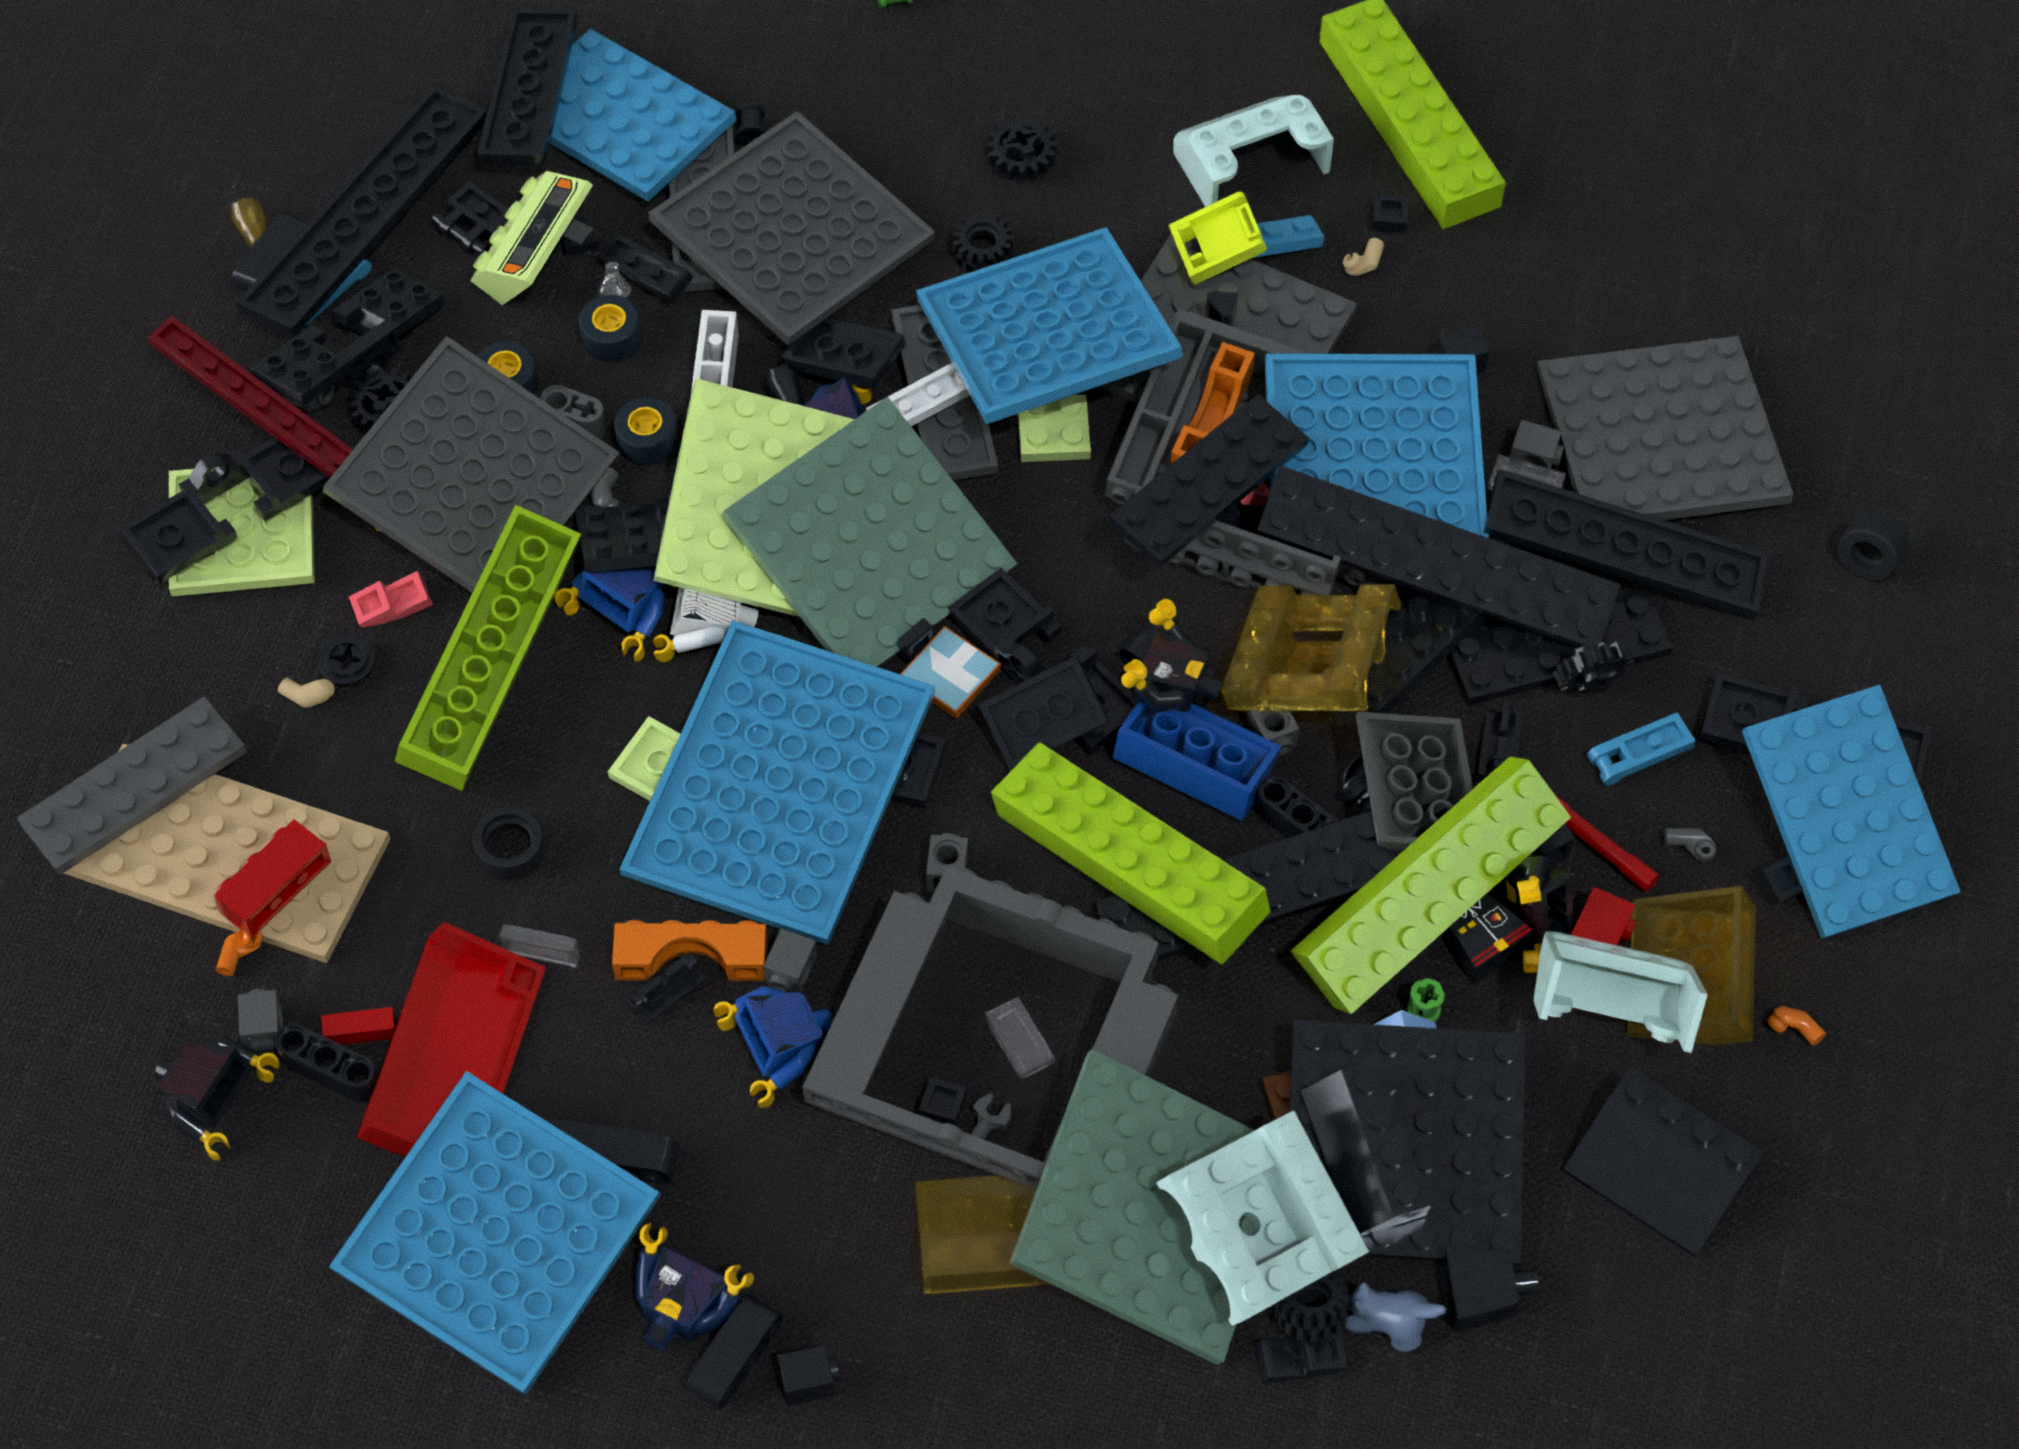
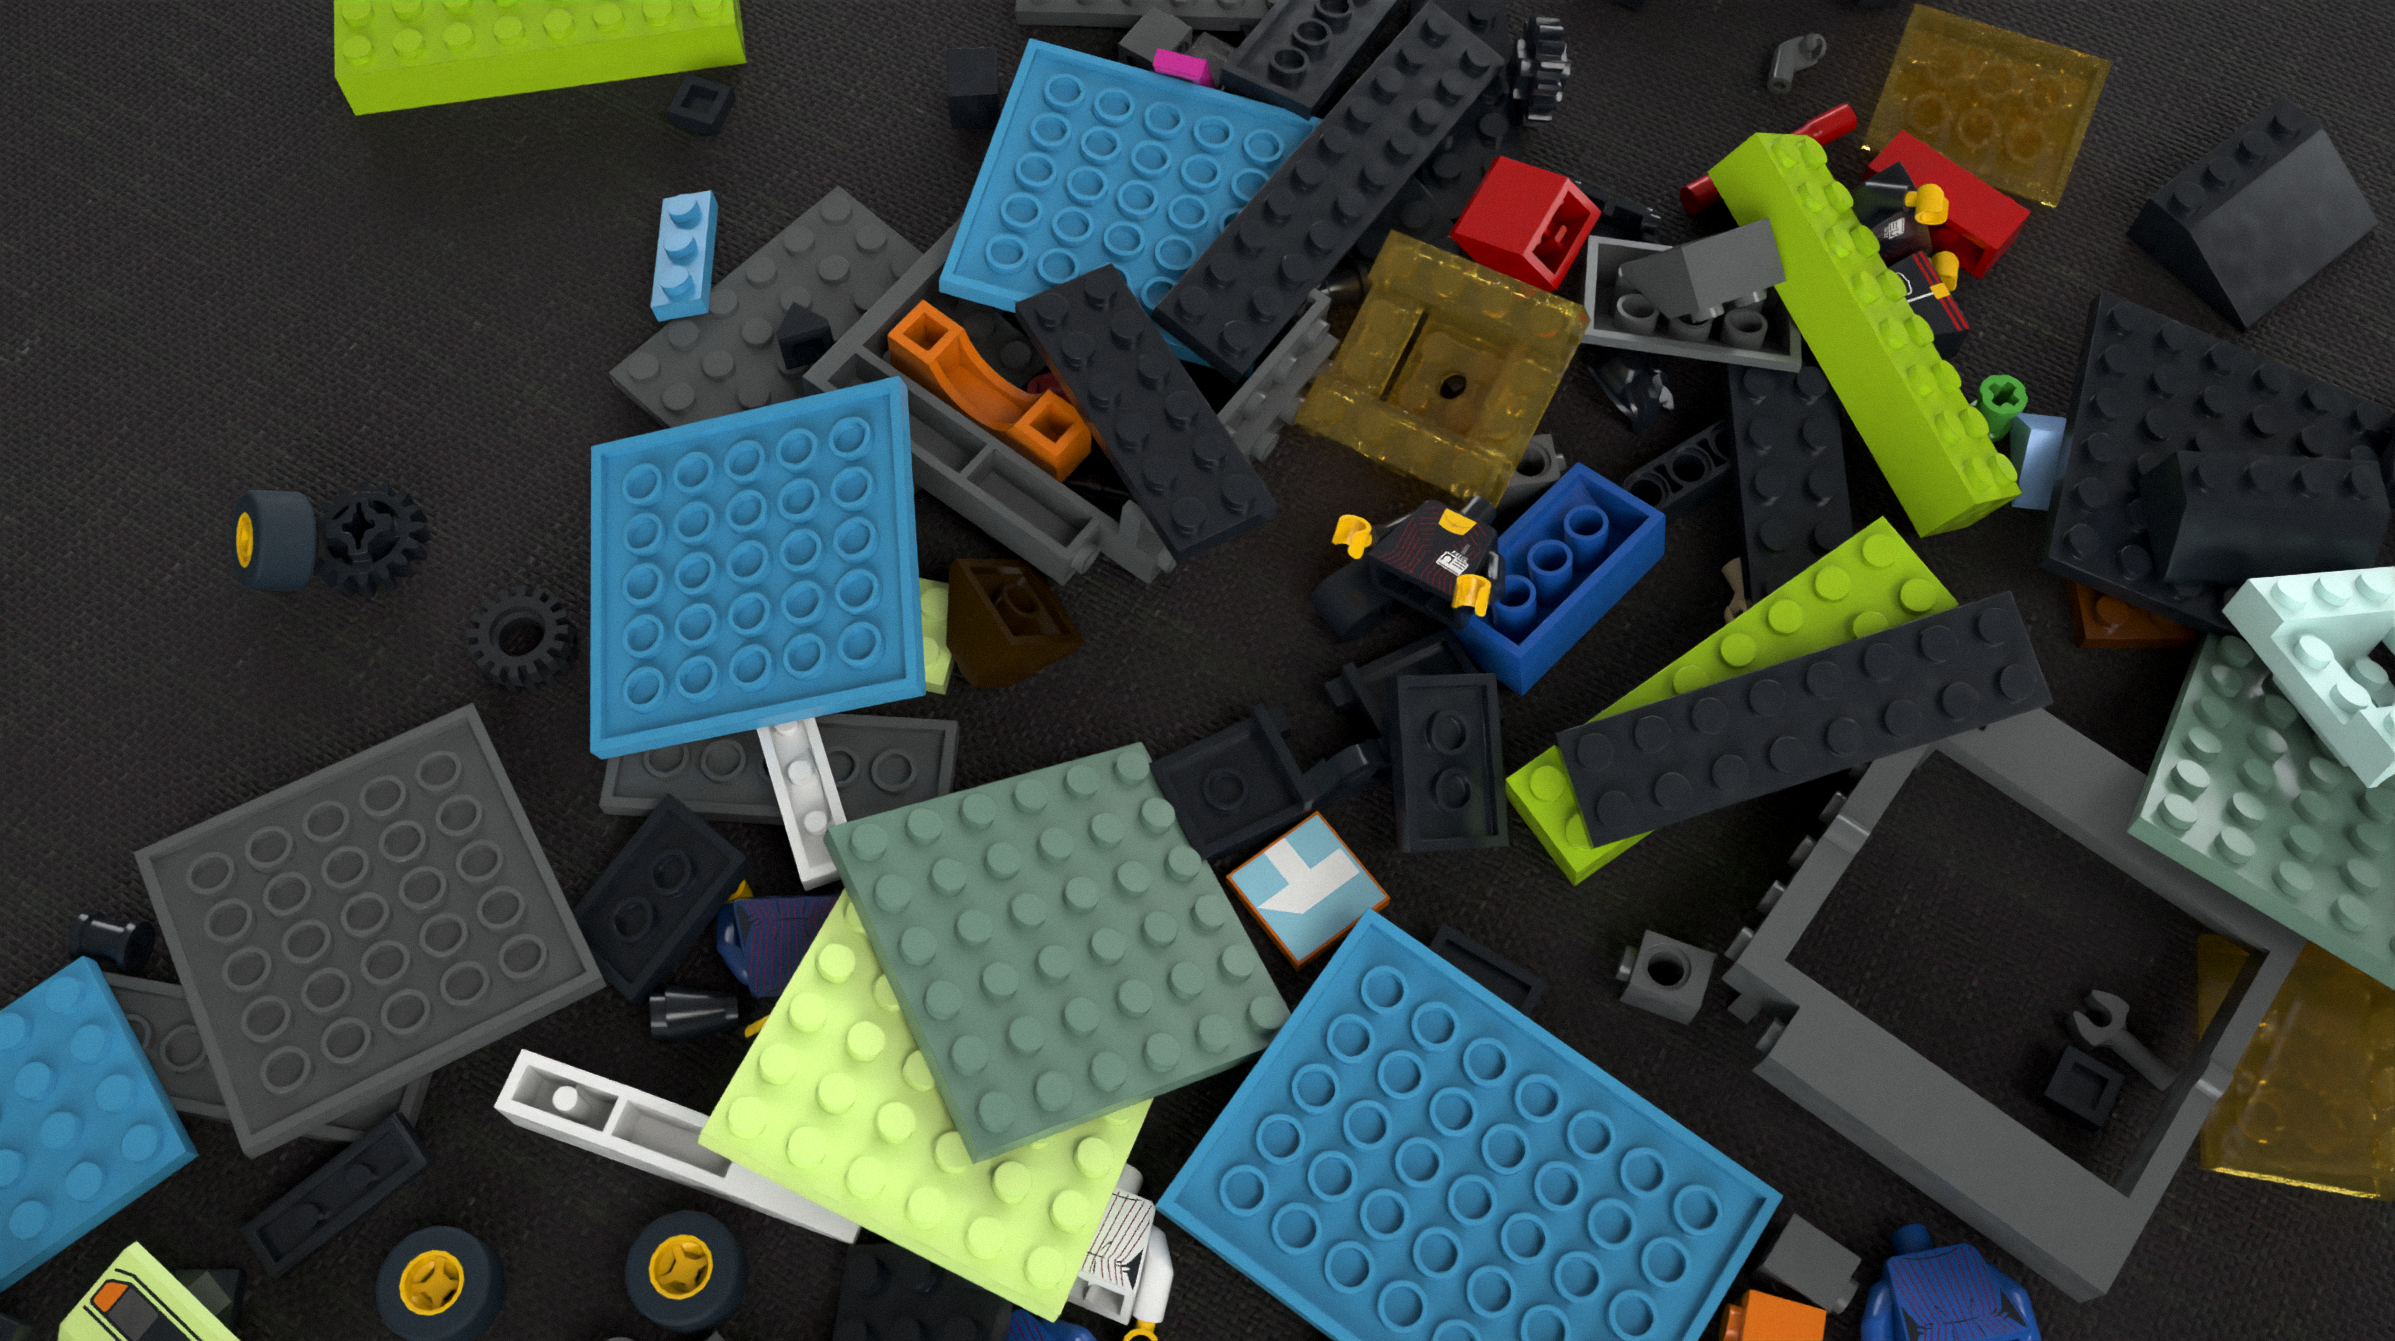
camera: 75 degrees left, 5 degrees up
(614, 282) = (349, 1262): clear rock -> none
(914, 641) = (1249, 922): black tile -> none
(999, 103) = (273, 540): none -> black wheel
(1019, 1037) = (1974, 950): clear tile -> none
(1071, 472) = (1004, 622): none -> dark brown slope
(1113, 873) = (1801, 719): none -> black plate
(1207, 147) = (485, 274): light aqua windscreen -> none
(1225, 234) = (672, 300): neon yellow container -> none
(1365, 263) = (769, 157): tan arm -> none
(1431, 773) = (1710, 272): none -> dark grey slope
(1454, 679) = (1525, 223): none -> red slope
(1493, 451) = (1183, 68): none -> dark pink tile
(1619, 984) = (2035, 140): light aqua windscreen -> none
(1641, 748) = (1648, 71): dark azure plate -> none
(1799, 1020) = (2068, 26): orange arm -> none

